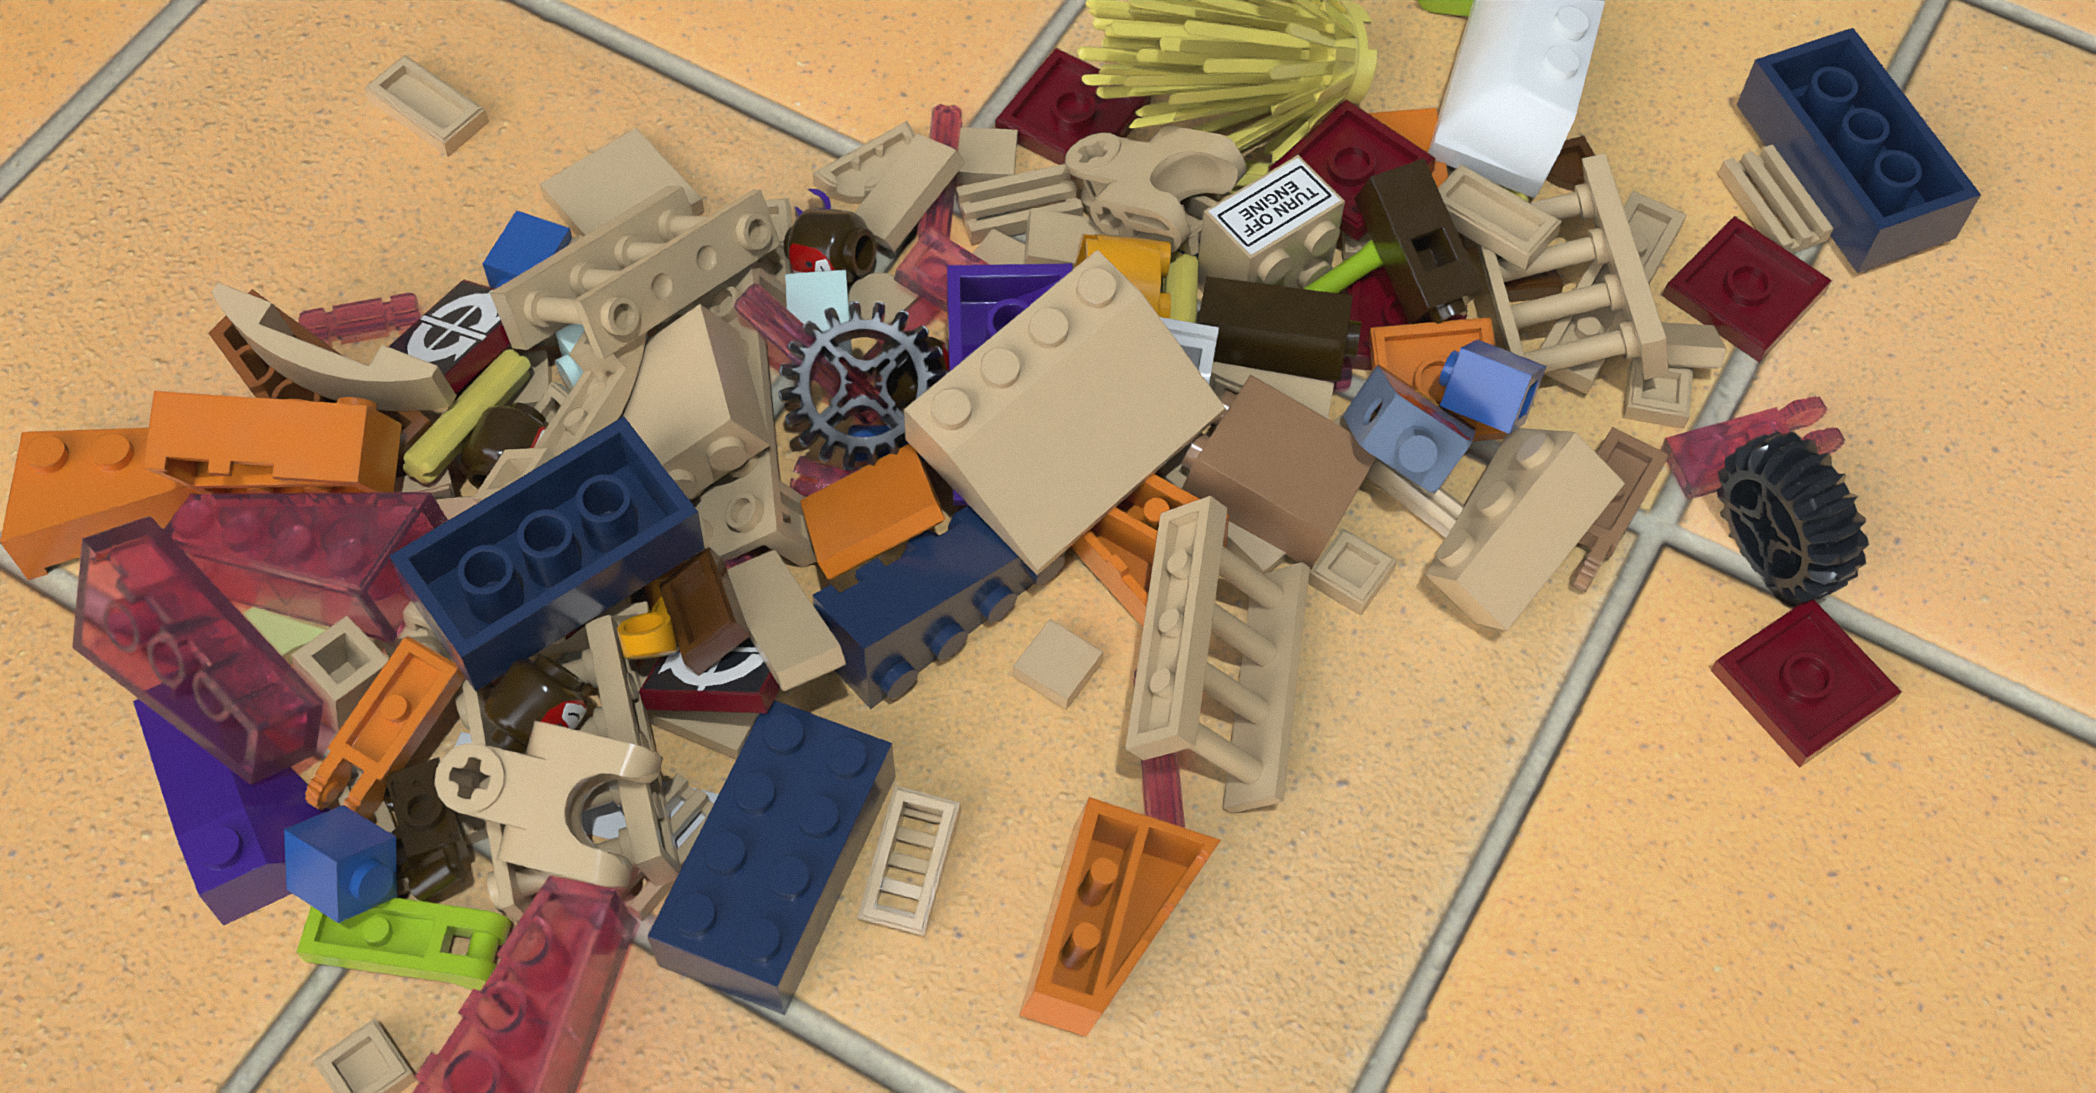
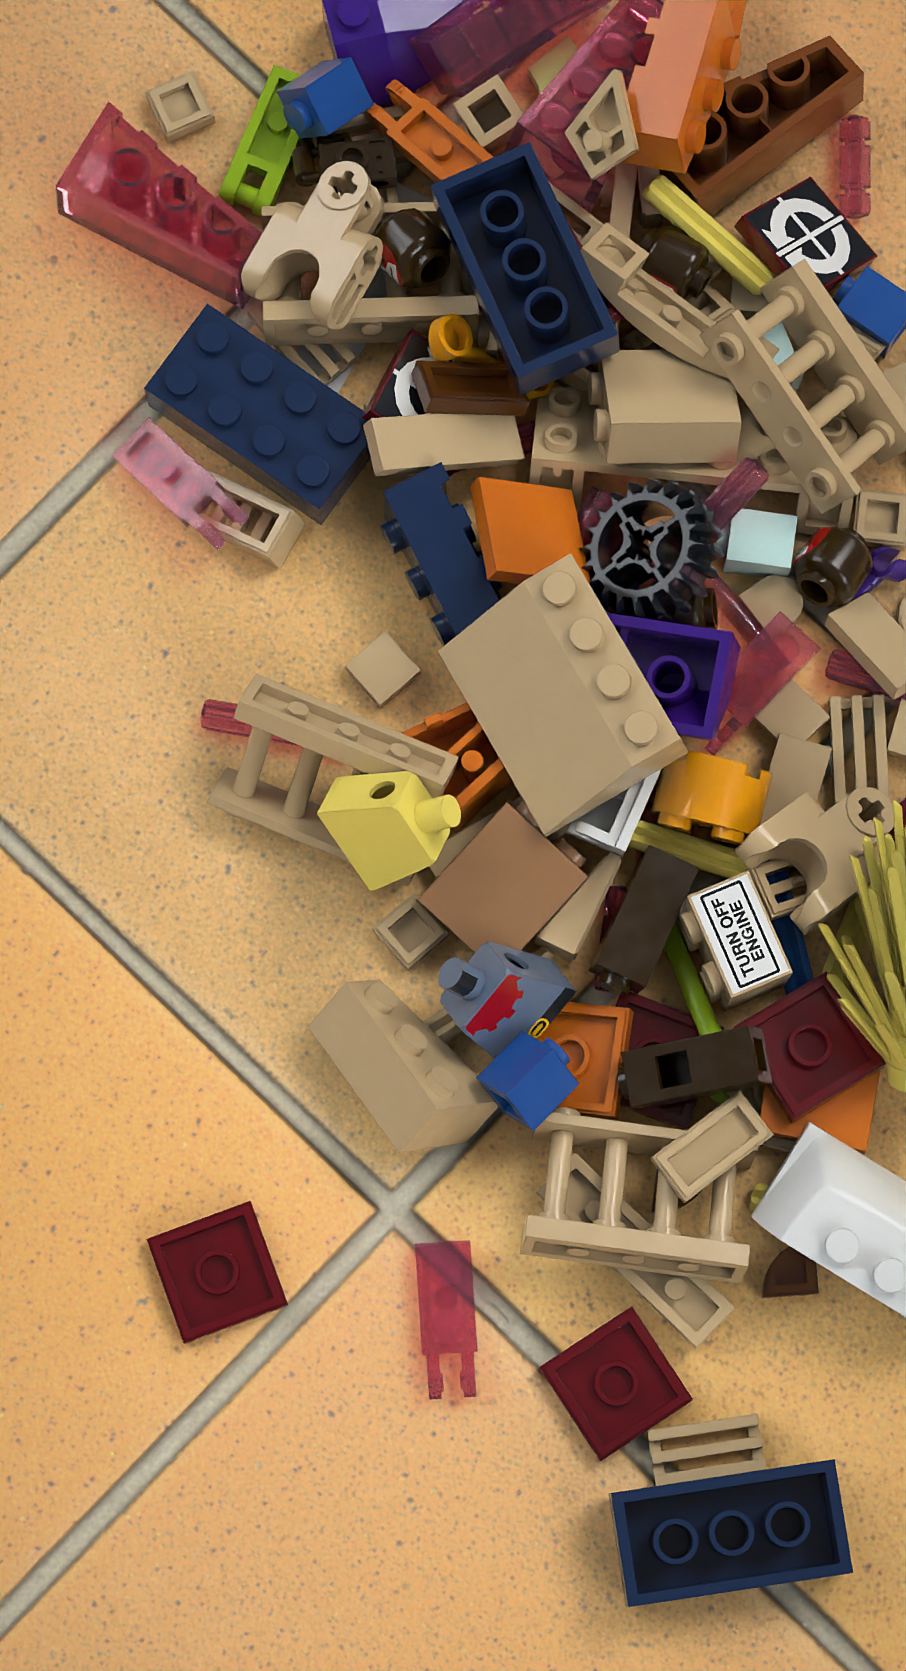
camera: 105 degrees right, 20 degrees up
(359, 486) = (604, 128): none -> tan piece
(391, 379) = (799, 71): tan slope -> none
(884, 937) = (176, 479): none -> clear pink hinge
(1107, 907) = (151, 646): orange wedge -> none
(1266, 553) = (387, 824): none -> light yellow torso
(1638, 467) = (425, 1174): medium nougat hinge -> none
(1659, 399) = (518, 1269): tan tile -> none
(1694, 346) = (559, 1296): tan tile -> none
(1792, 516) = (348, 1297): black gear -> none

